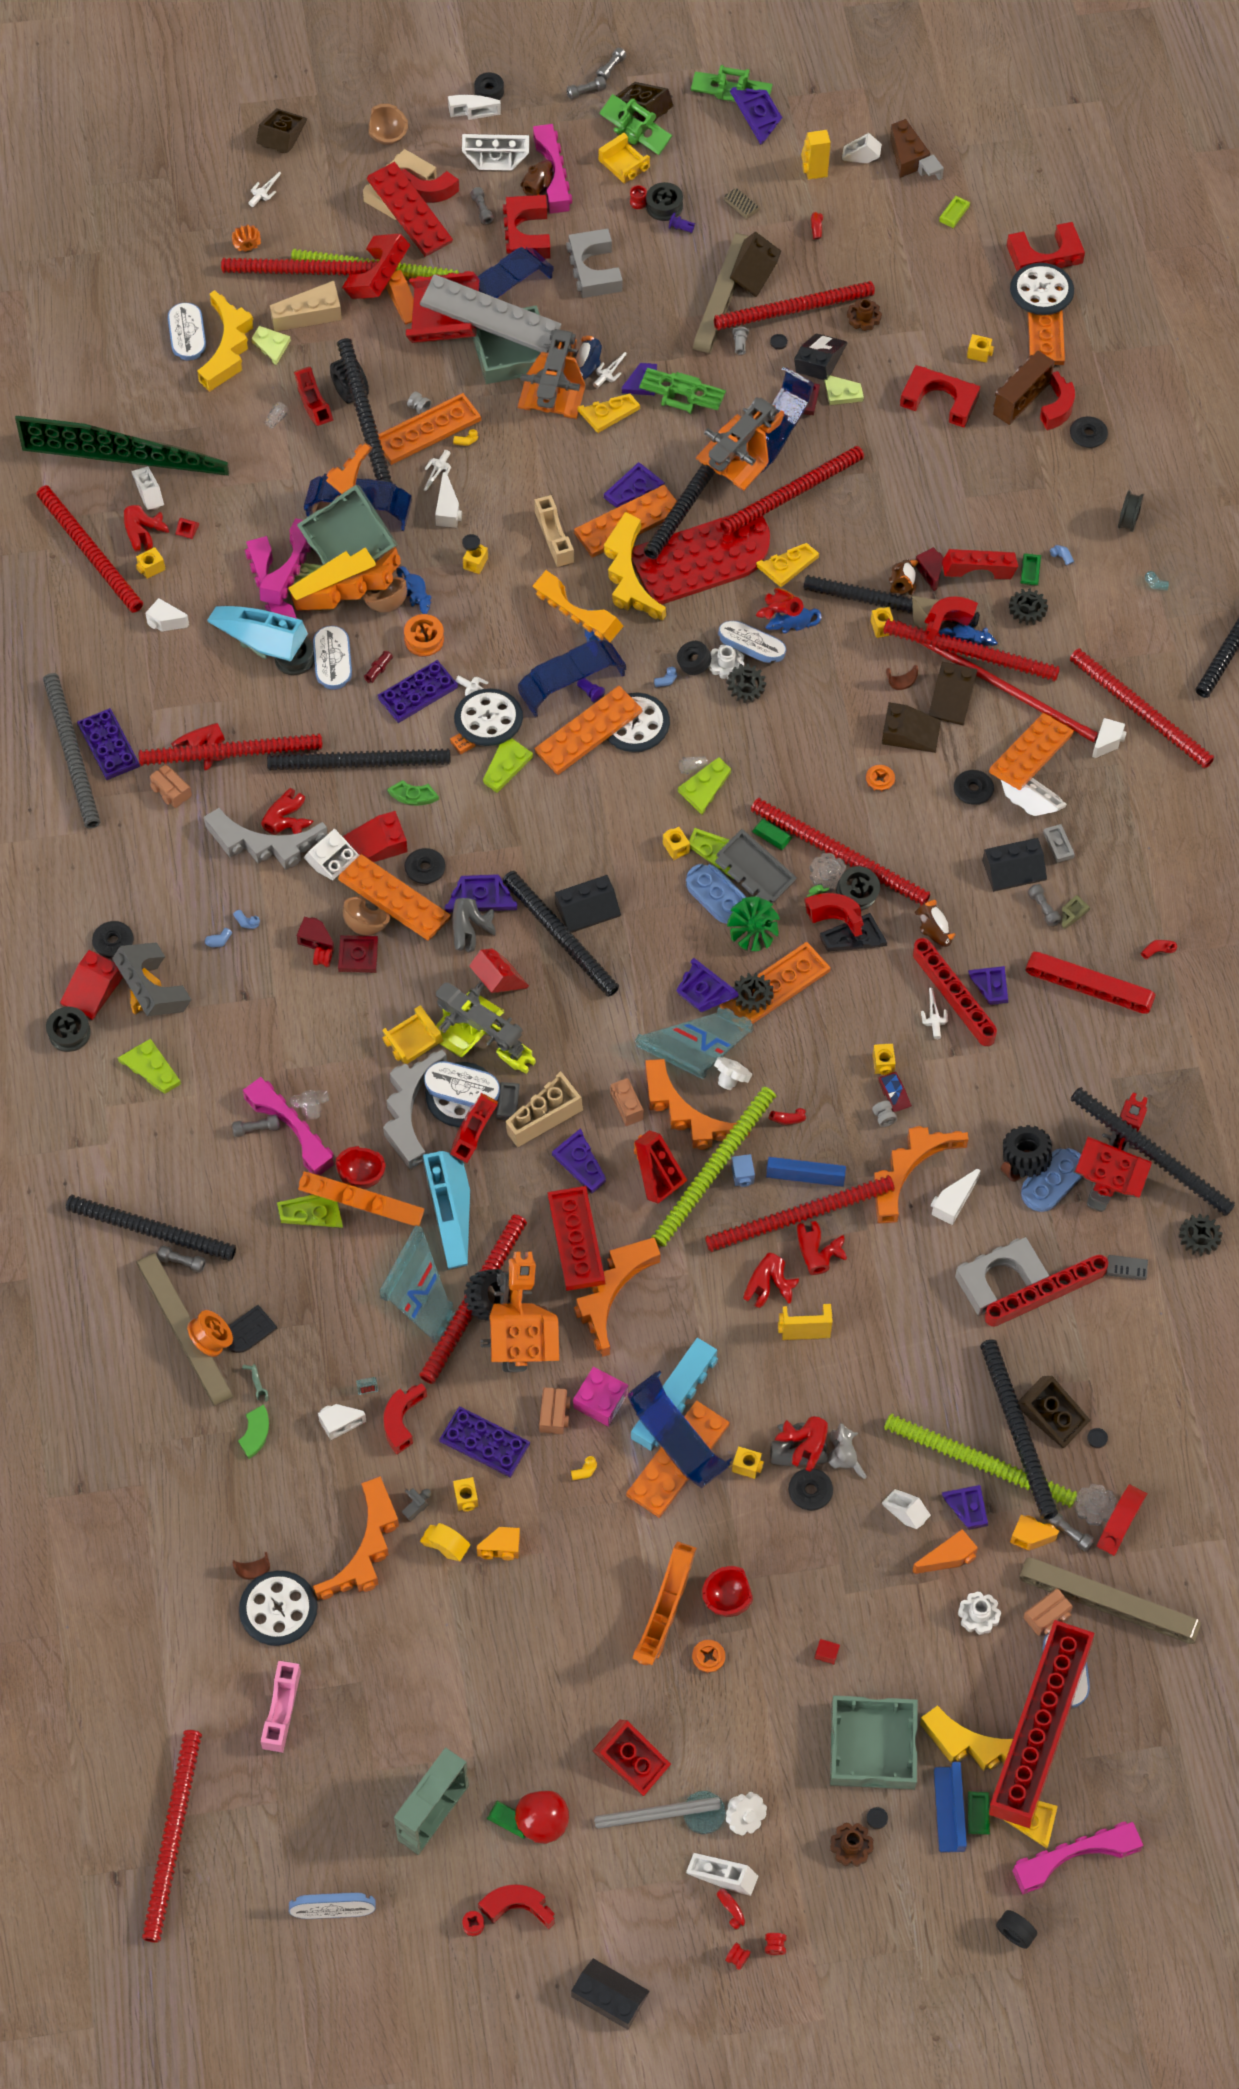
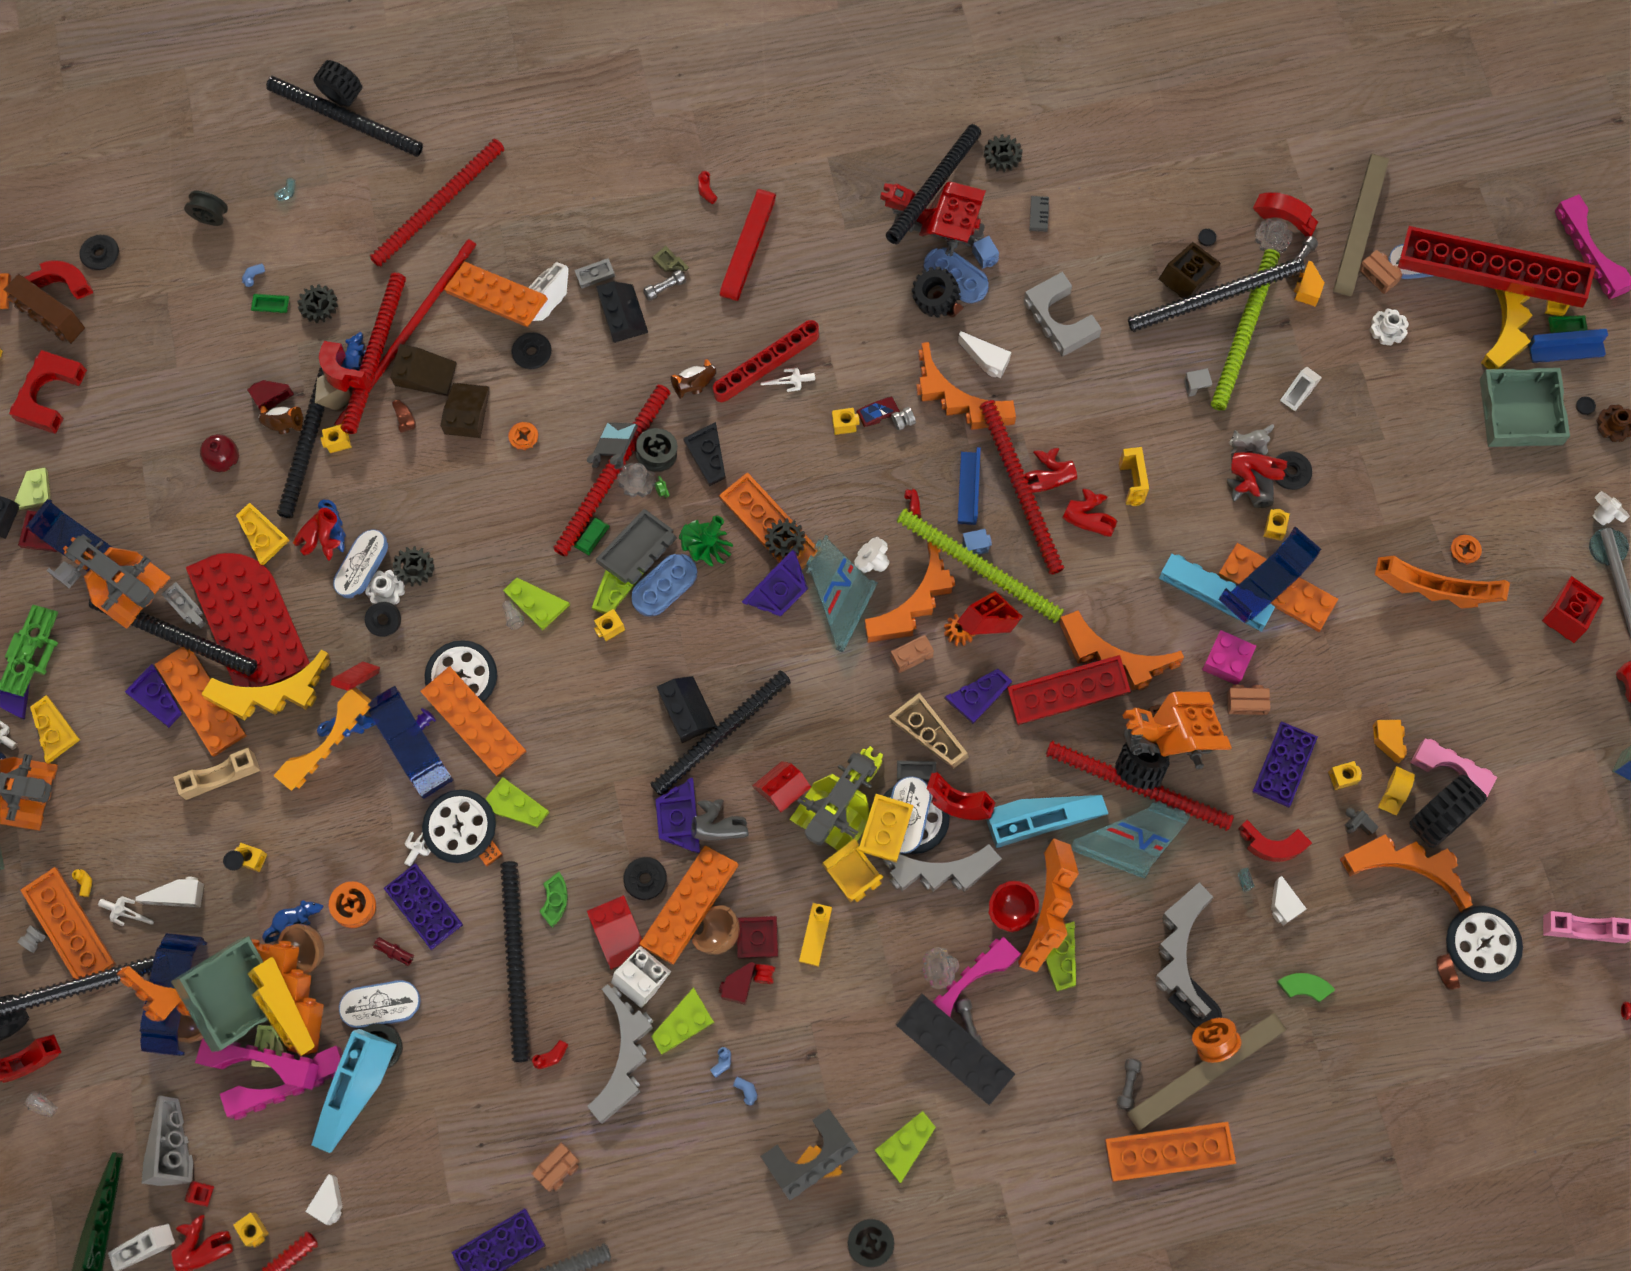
camera: 90 degrees left, 10 degrees up
(91, 984) = (815, 1225): red slope -> none
(108, 929) = (762, 1219): black wheel -> none
(113, 1288) = (1170, 1151): none -> orange plate
(150, 1227) = (1097, 1121): black piece -> none
(208, 734) = (494, 1146): red piece -> none
(225, 503) = (167, 1152): none -> light grey wedge
(230, 749) = (510, 1104): red piece -> none
(231, 1106) = (955, 1049): none -> black plate
(260, 1391) = (1249, 992): sand green piece -> none
(267, 785) = (551, 1058): none -> red arm
(273, 820) = (580, 1038): red piece -> none
(286, 891) = (683, 1023): none -> lime wing
(305, 1311) = (1175, 974): none -> light grey arch
(353, 1003) = (815, 934): none -> yellow piece
(411, 1572) = (1447, 810): none -> black tyre
(447, 1059) = (886, 828): none -> yellow plate
(447, 1623) = (1431, 755): none -> bright pink arch
(587, 1470) = (1303, 668): yellow arm -> none
(633, 628) = (355, 676): none -> red tile
(668, 679) = (406, 646): medium blue arm -> none
(720, 505) = (184, 605): none -> light grey hinge
(727, 1591) = (1411, 531): red cylinder -> none
(791, 490) = (169, 531): red piece -> none
(827, 1651) = (1444, 450): red slope -> none
(835, 907) = (680, 464): red arch -> none
(865, 850) = (613, 443): none -> dark grey flag
(872, 530) = (219, 453): none -> dark red cylinder
(917, 1401) = (1196, 380): none -> light grey panel
(950, 1554) = (1338, 351): orange slope -> none
(959, 562) = (268, 349): red arch -> none
(968, 1506) = (1290, 337): dark purple wing -> none
(991, 984) = (755, 329): dark purple wing -> none
(1053, 1284) = (1072, 269): red beam -> none
(1077, 1207) = (985, 252): none -> medium blue brick
(1109, 737) = (471, 227): white slope -> none

